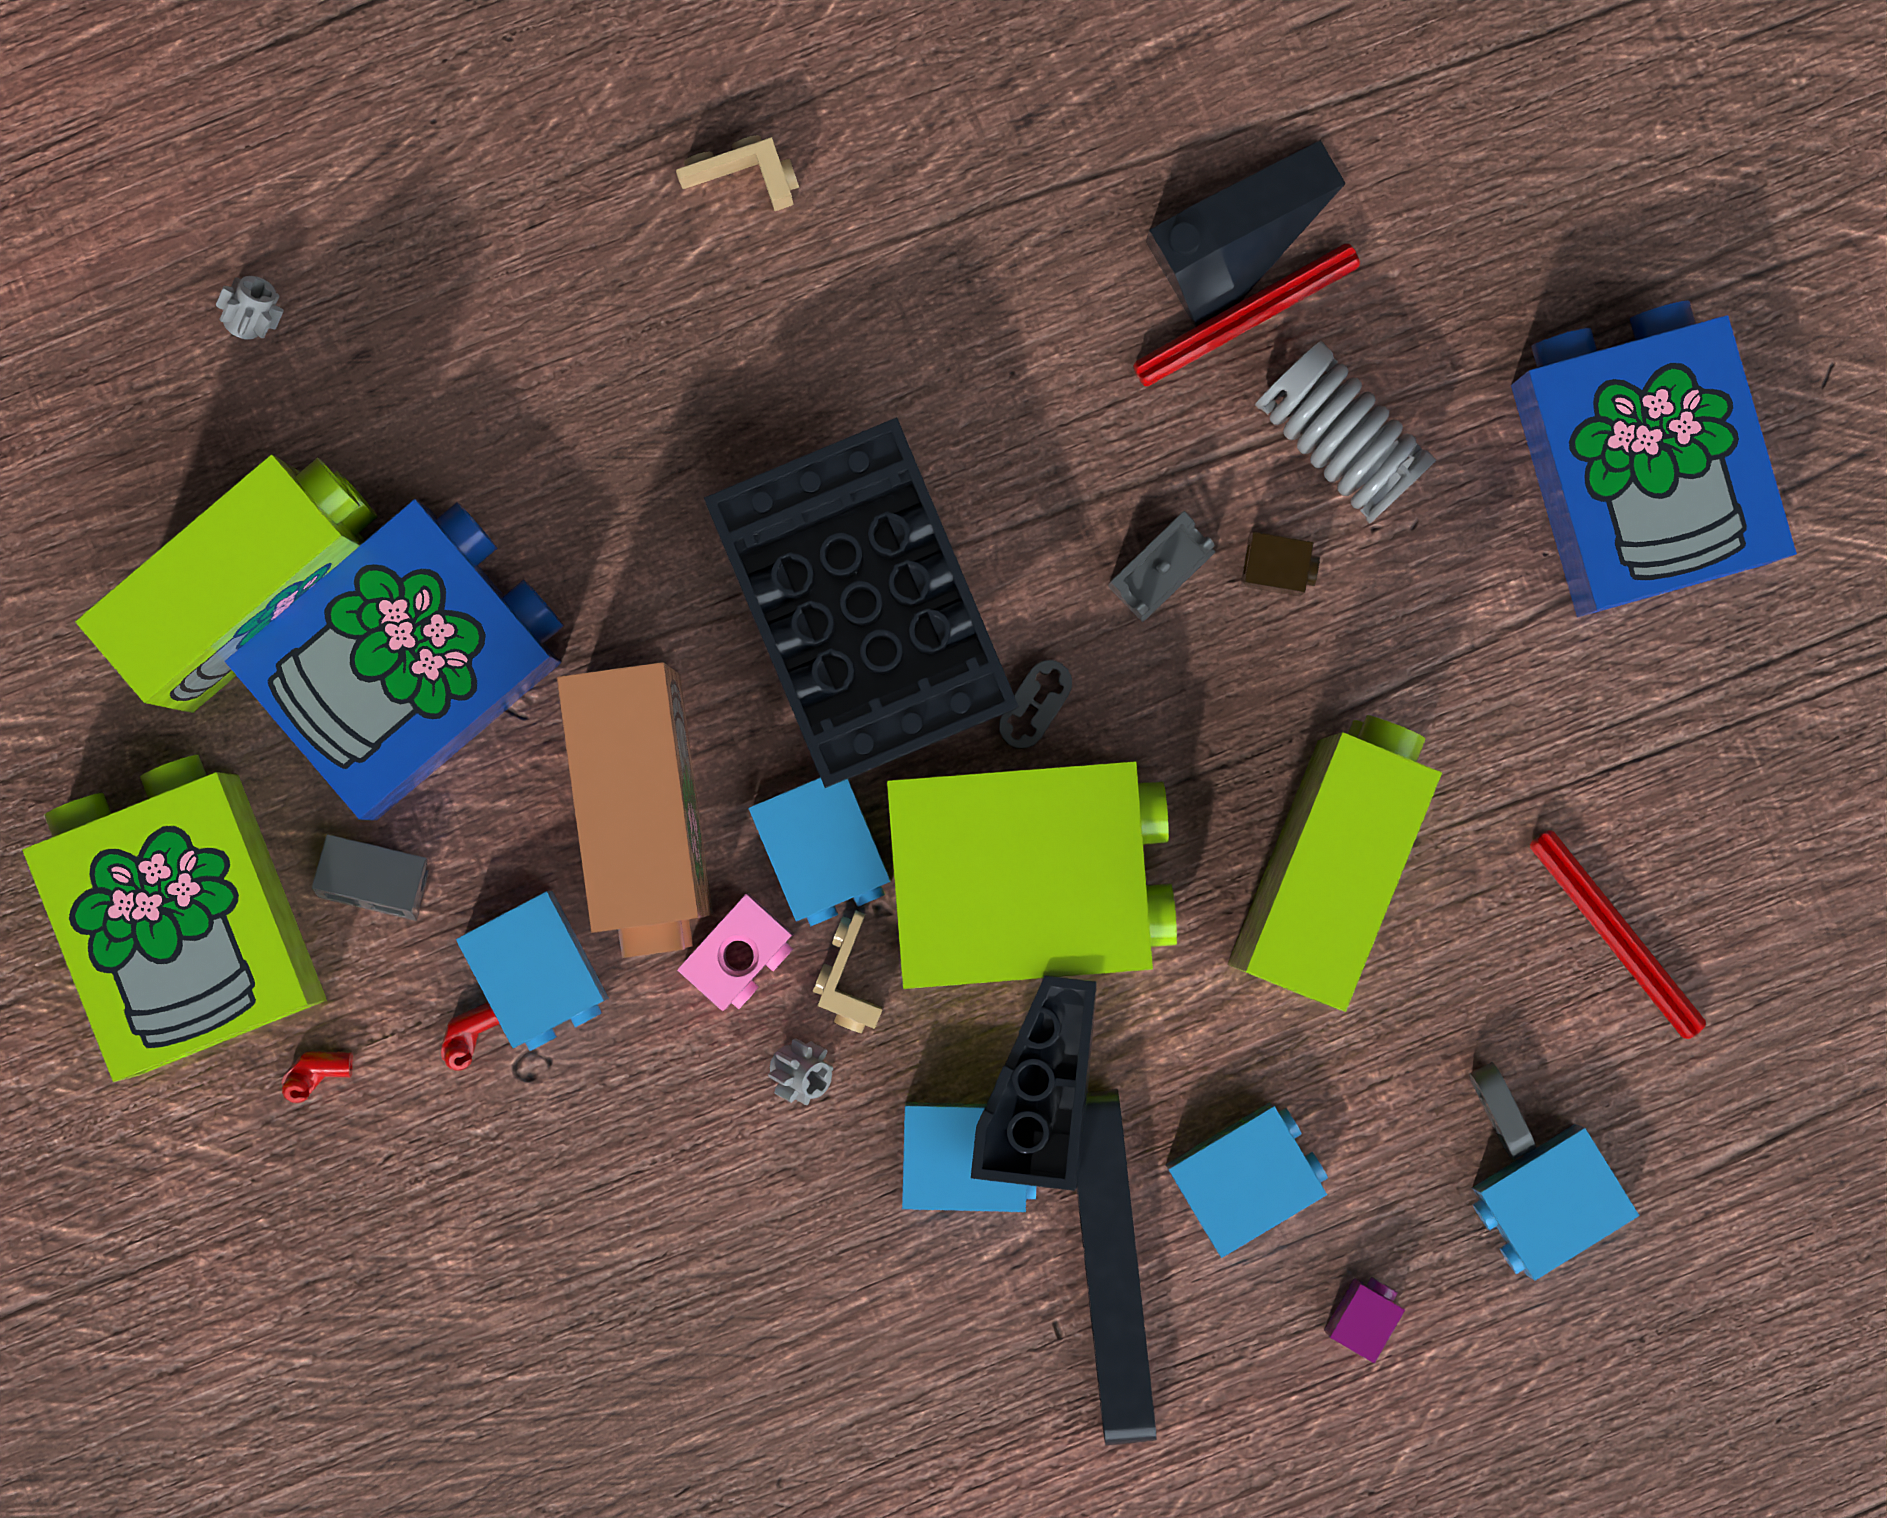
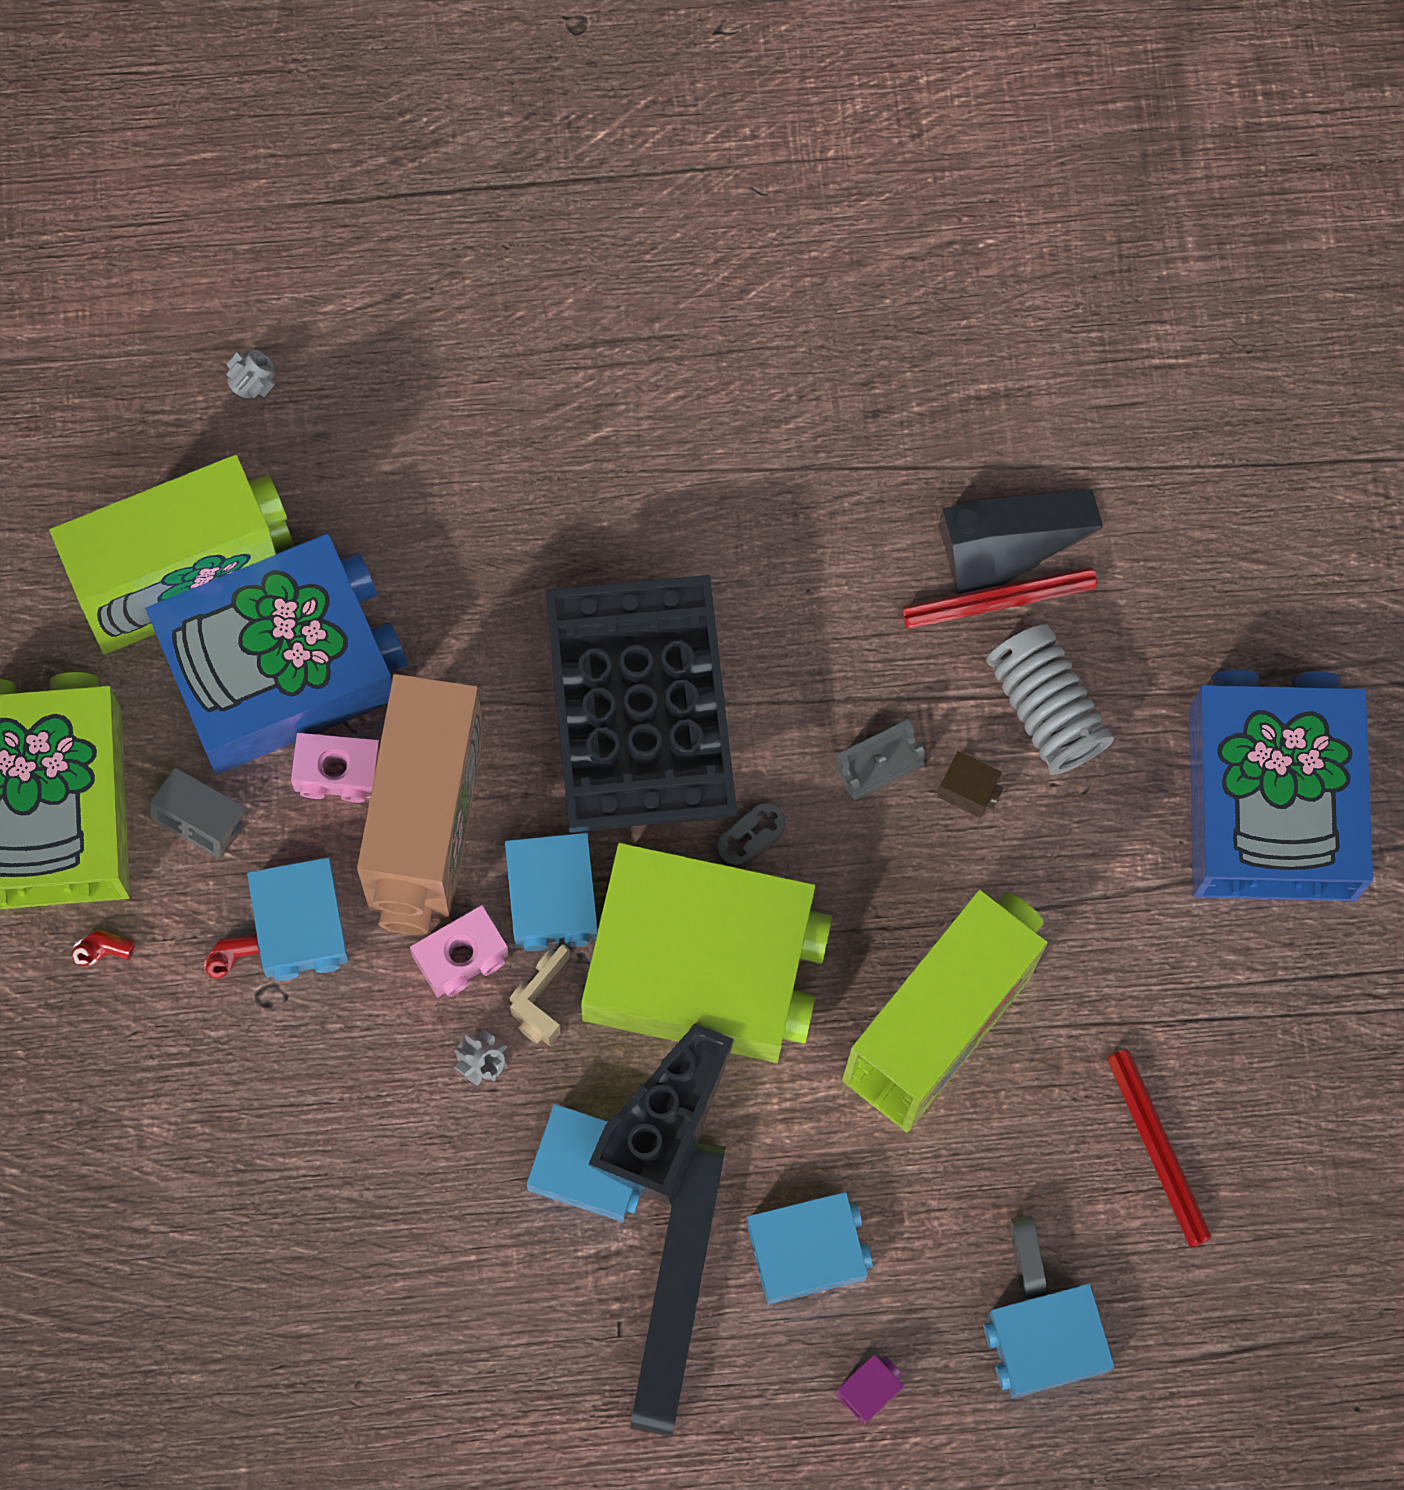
camera: 15 degrees right, 15 degrees down
(487, 765) = (317, 752): none -> bright pink brick
(746, 153) = (655, 374): tan bracket -> none

